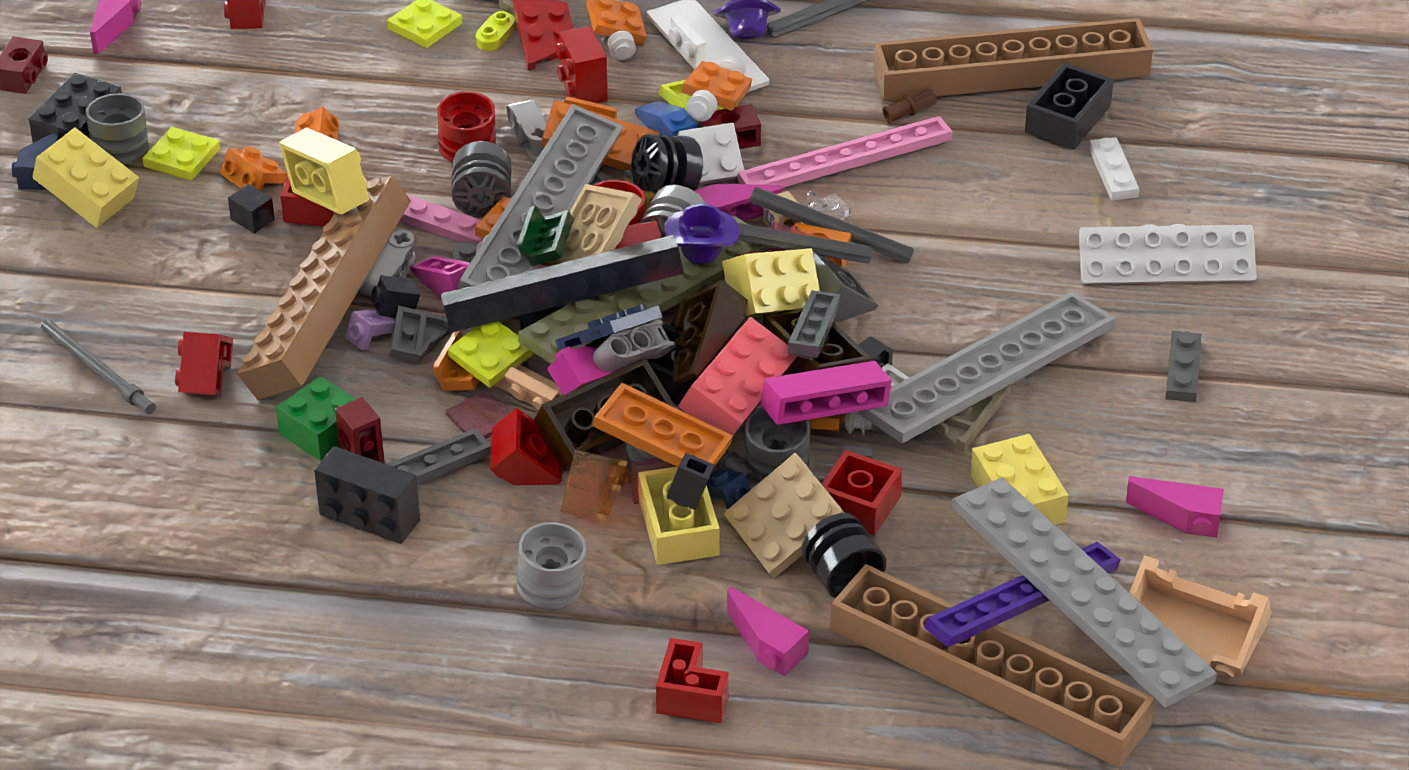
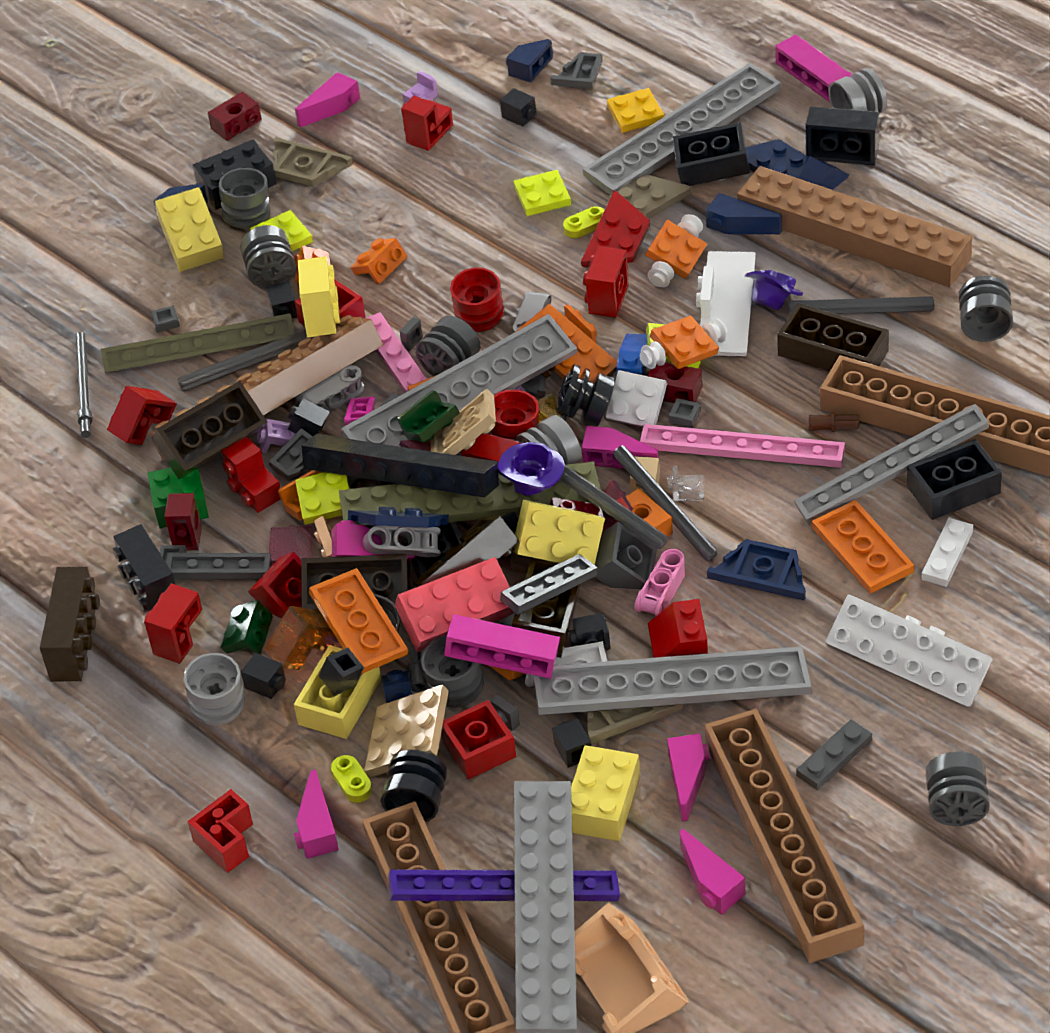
camera: 40 degrees right, 5 degrees up
(128, 273) = (165, 318): none -> dark grey tile
(147, 79) = (306, 163): none -> dark tan wing
(193, 279) = (197, 343): none -> olive plate
(201, 170) = (267, 256): none -> dark grey wheel
(260, 276) = (241, 361): none -> dark grey axle
(326, 332) = (208, 429): none -> dark brown brick
(331, 577) = (69, 624): none -> dark brown brick
(383, 371) = (249, 476): none -> red brick
(421, 183) = (411, 333): none -> dark grey tile
(446, 527) = (170, 622): none -> red brick
(516, 504) = (247, 628): none -> dark green bracket
(591, 531) = (263, 676): none -> black brick
(761, 585) = (350, 776): none -> neon yellow plate
(763, 150) = (684, 412): none -> dark grey plate
(842, 38) = (821, 336): none -> dark brown brick
(893, 294) = (661, 583): none -> bright pink piece
(945, 458) = (570, 741): none -> black brick
(949, 324) = (678, 630): none -> red slope
(969, 246) = (762, 568): none -> dark blue wing
(1006, 113) = (891, 463): none -> light grey plate
(1039, 192) = (863, 546): none -> orange plate
(1073, 432) = (687, 764): none -> dark pink slope
(1217, 442) = (784, 836): none -> medium nougat brick
(1327, 338) = (957, 788): none -> dark grey wheel

